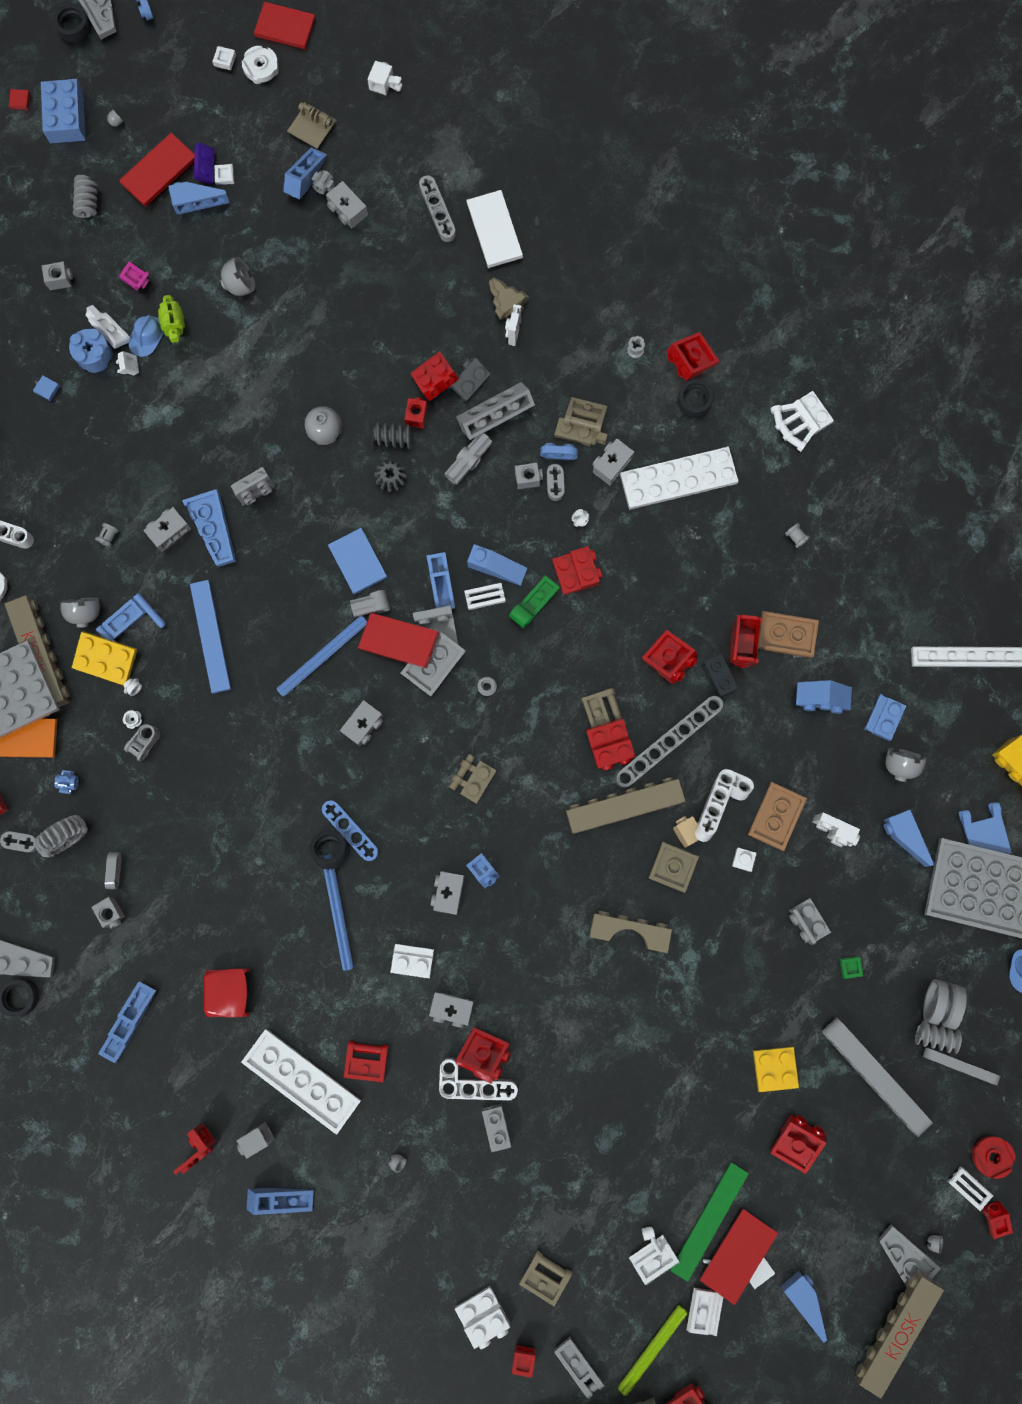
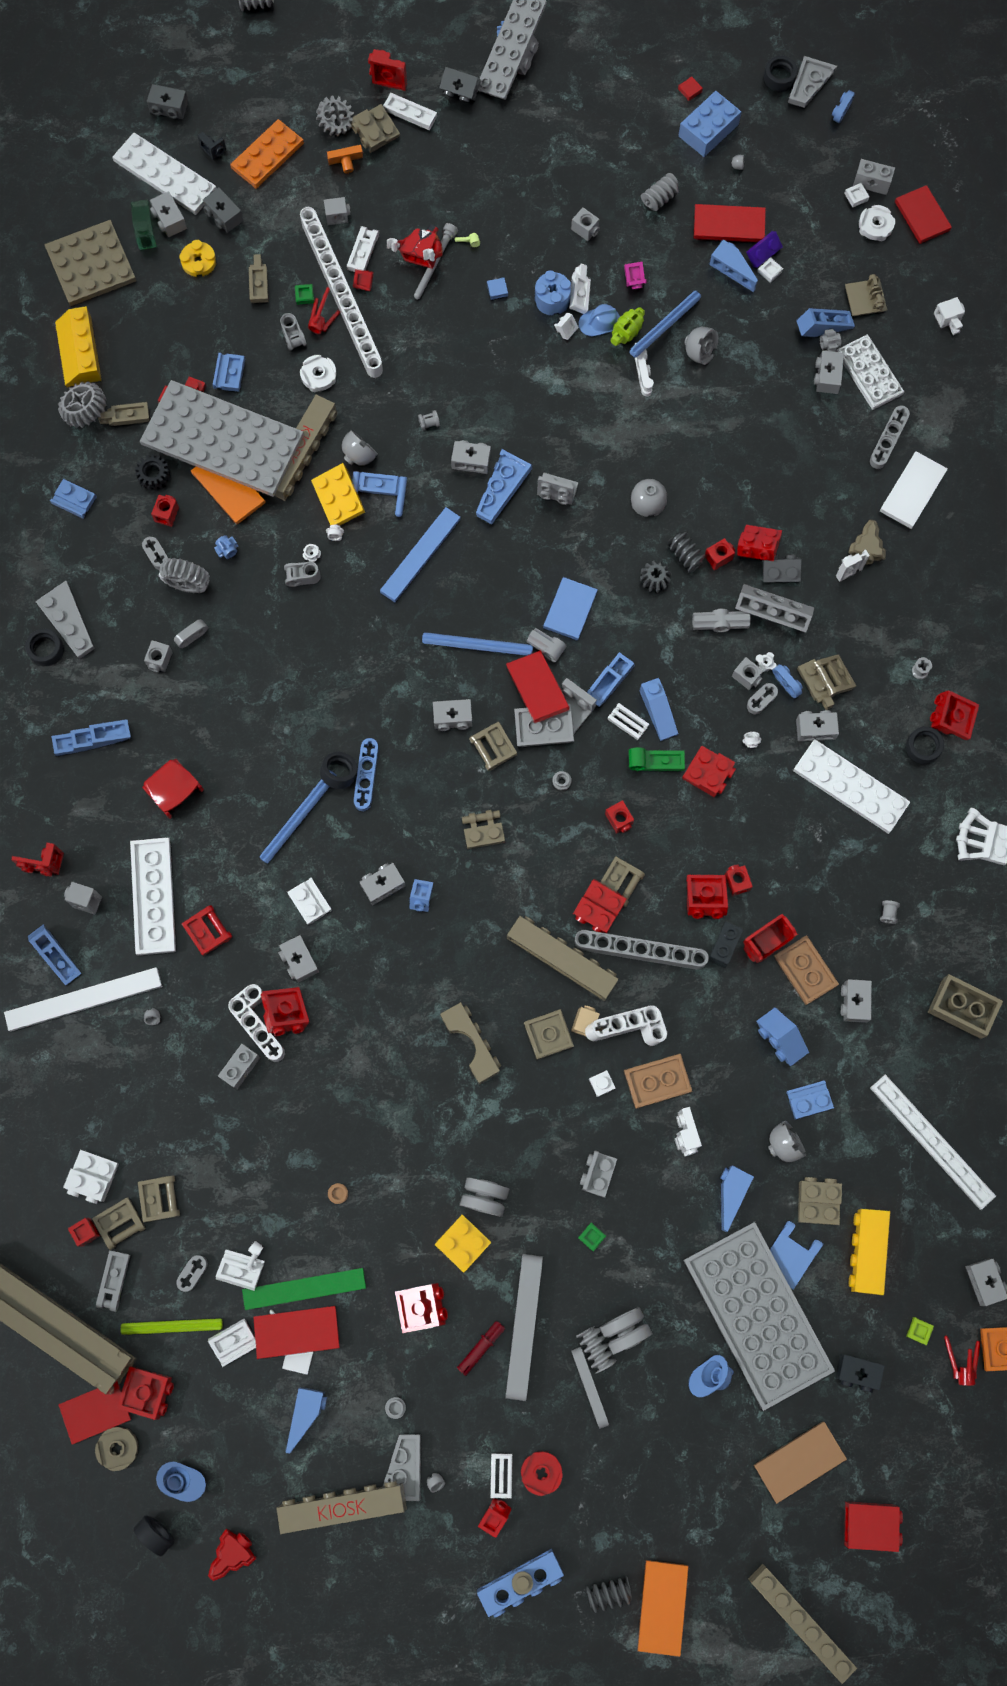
camera: 45 degrees right, 5 degrees down
(196, 294) = (663, 325): none -> medium blue axle
(216, 338) = (643, 371): none -> white plate
(221, 32) = (874, 176): none -> light grey brick
(335, 1207) = (83, 999): none -> white tile
(373, 176) = (870, 372): none -> white tile
(416, 708) = (498, 742): none -> dark tan plate
(529, 449) = (769, 658): none -> white plate
(531, 1325) = (115, 1217): none -> dark tan plate
(548, 662) = (619, 809): none -> red brick
(620, 1301) = (196, 1276): none -> light grey beam
(658, 1132) = (338, 1193): none -> medium nougat tile
(686, 623) = (738, 888): none -> red brick
(758, 1024) = (484, 1197): none -> light grey wheel
(852, 619) = (862, 991): none -> light grey brick
(856, 1226) = (395, 1407): none -> light grey plate
(865, 1123) = (480, 1348): none -> dark red axle
(914, 545) = (965, 1006): none -> dark tan brick
(964, 777) = (819, 1201): none -> dark tan plate

